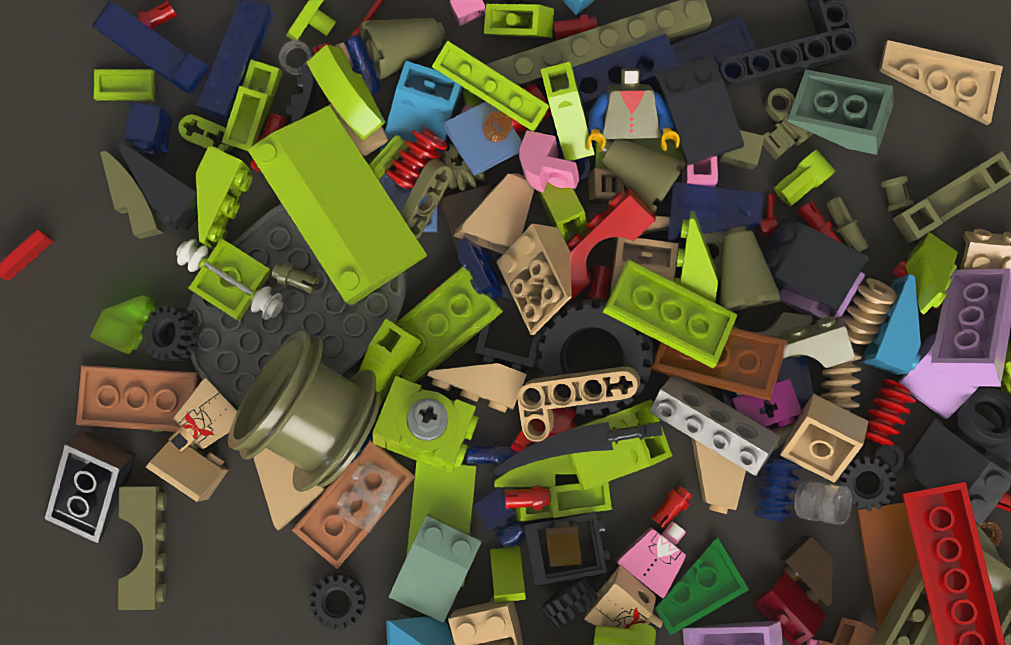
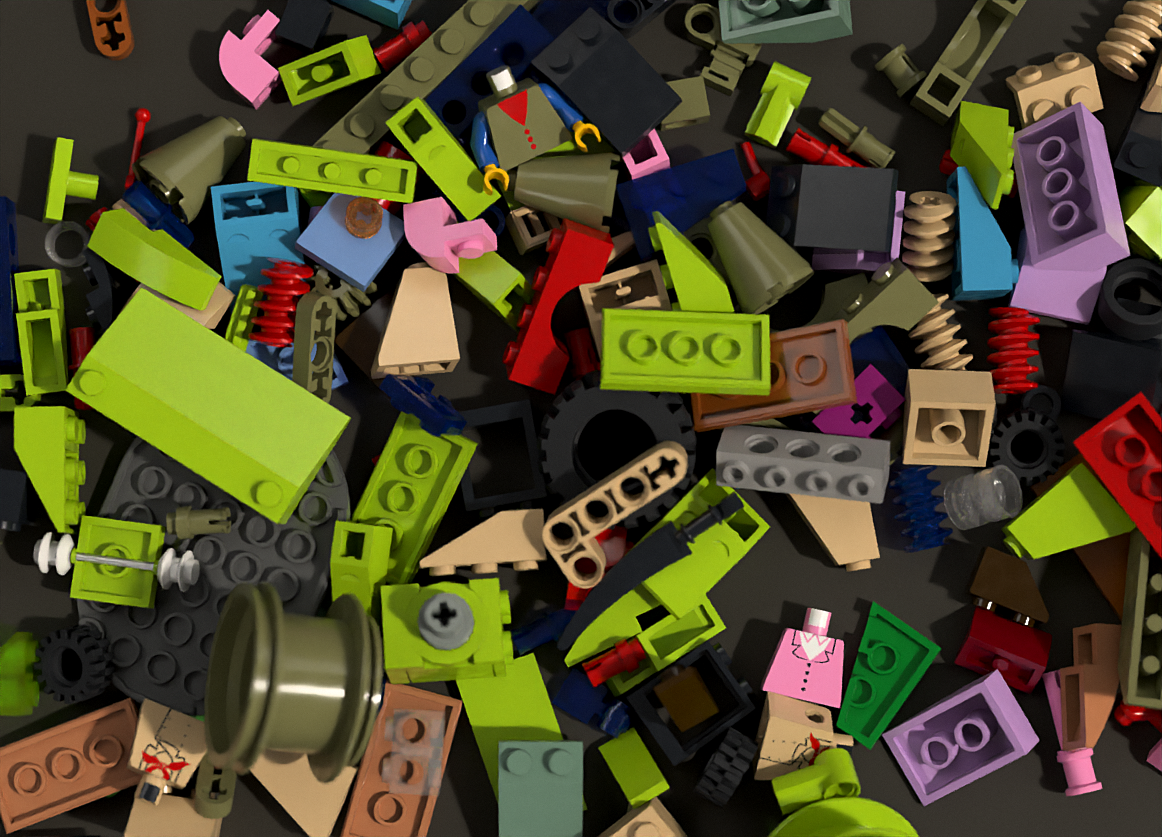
camera: 25 degrees left, 0 degrees up
(223, 453) = (210, 782): none -> olive beam
(538, 274) = (499, 378): tan slope -> none
(675, 502) = (801, 584): red animal -> none
(873, 541) = (1066, 516): none -> lime slope

